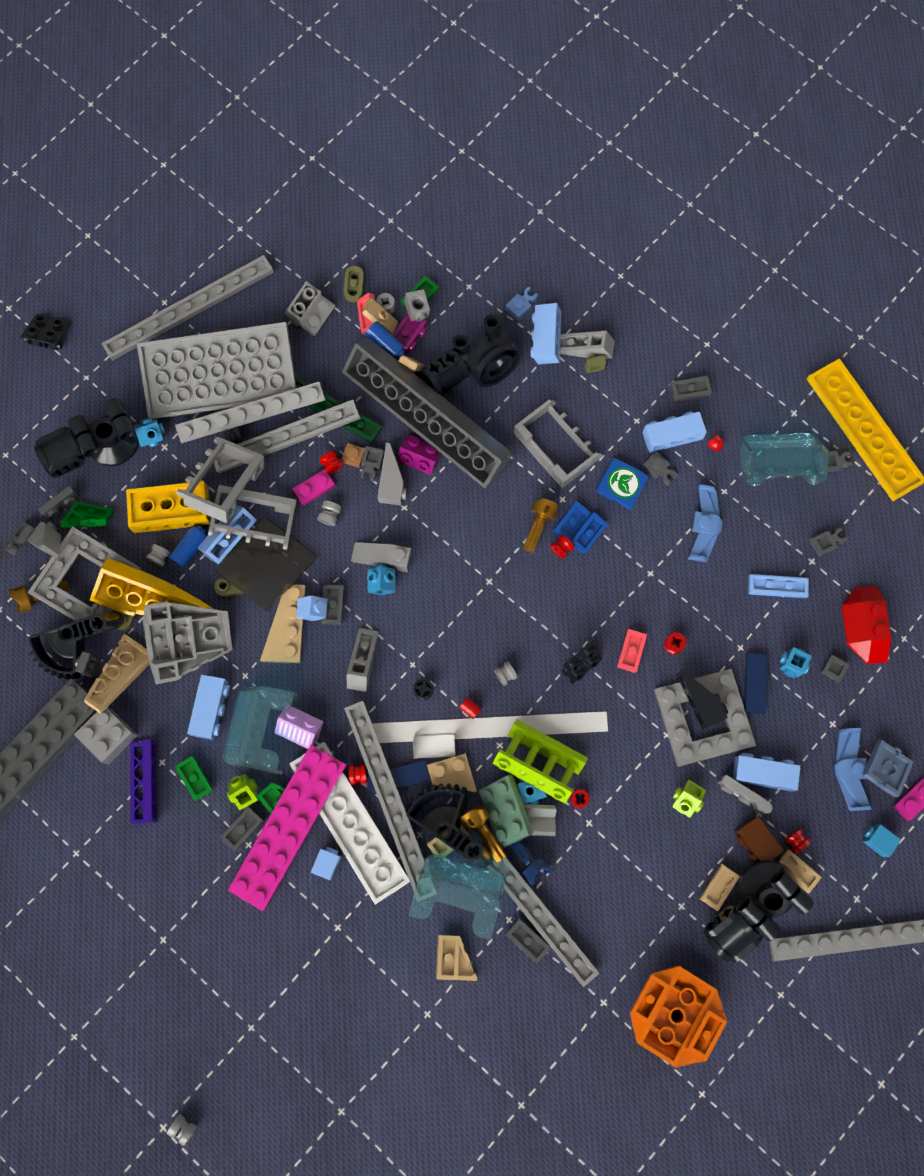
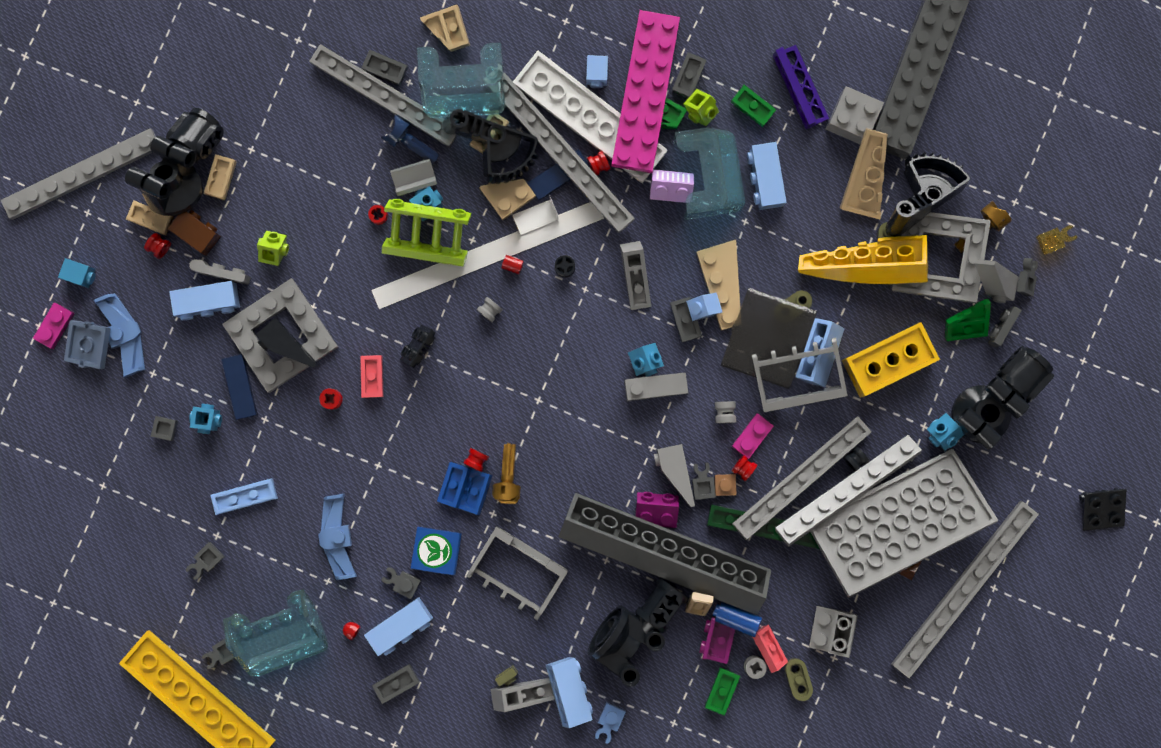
camera: 155 degrees right, 10 degrees up
(88, 665) = (900, 173): dark grey plate -> none
(158, 555) = (880, 308): light grey wheel -> none
(183, 638) = (817, 230): light grey wedge -> none
(188, 546) = (854, 328): blue brick -> none
(225, 511) = (825, 374): light grey hinge -> none
(375, 312) = (754, 647): tan plate -> none
(417, 298) = (718, 682): light grey brick -> none
(476, 820) = (469, 154): pearl gold piece -> none
(506, 811) = (443, 174): sand green plate -> none
(700, 1023) = (207, 35): orange piece -> none
(867, 624) = (144, 486): red wedge -> none

